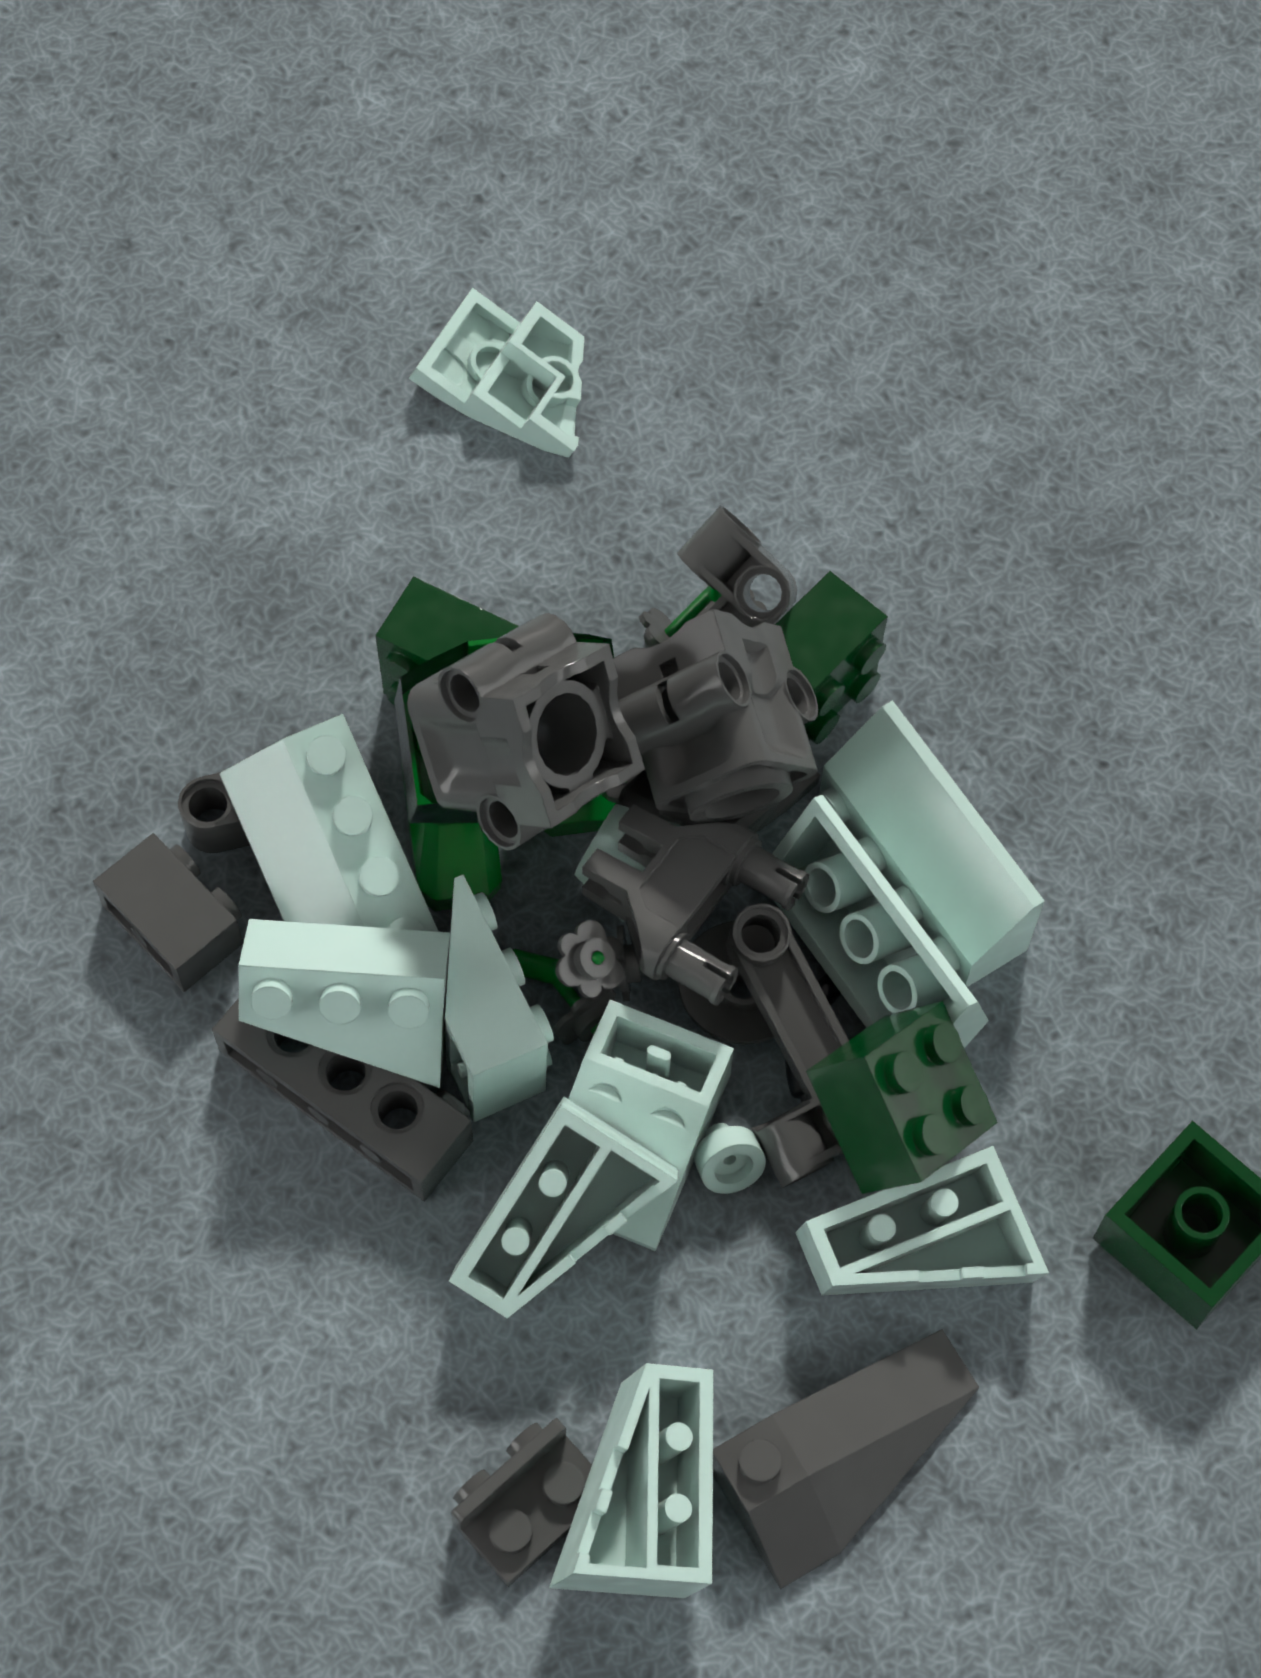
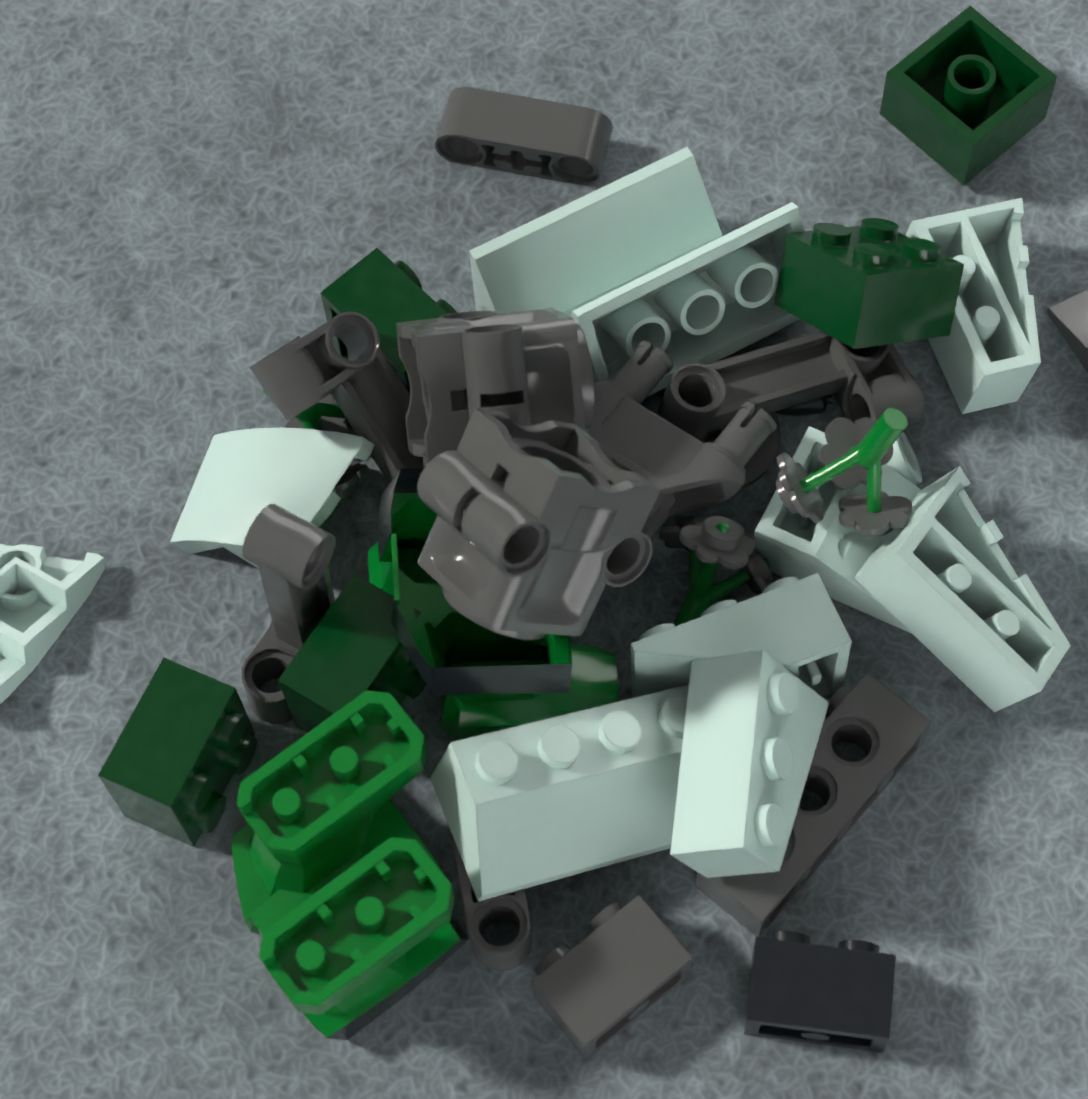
camera: 80 degrees left, 0 degrees up
(154, 1095) = (820, 992): none -> black brick
(242, 664) = (338, 874): none -> green piece
(363, 523) = (180, 753): none -> dark green brick
(502, 563) = (298, 591): none -> dark grey piece
(633, 570) = (262, 468): none -> light aqua slope
(692, 1082) = (850, 457): none -> dark grey plant
(1090, 777) = (524, 135): none -> dark grey beam

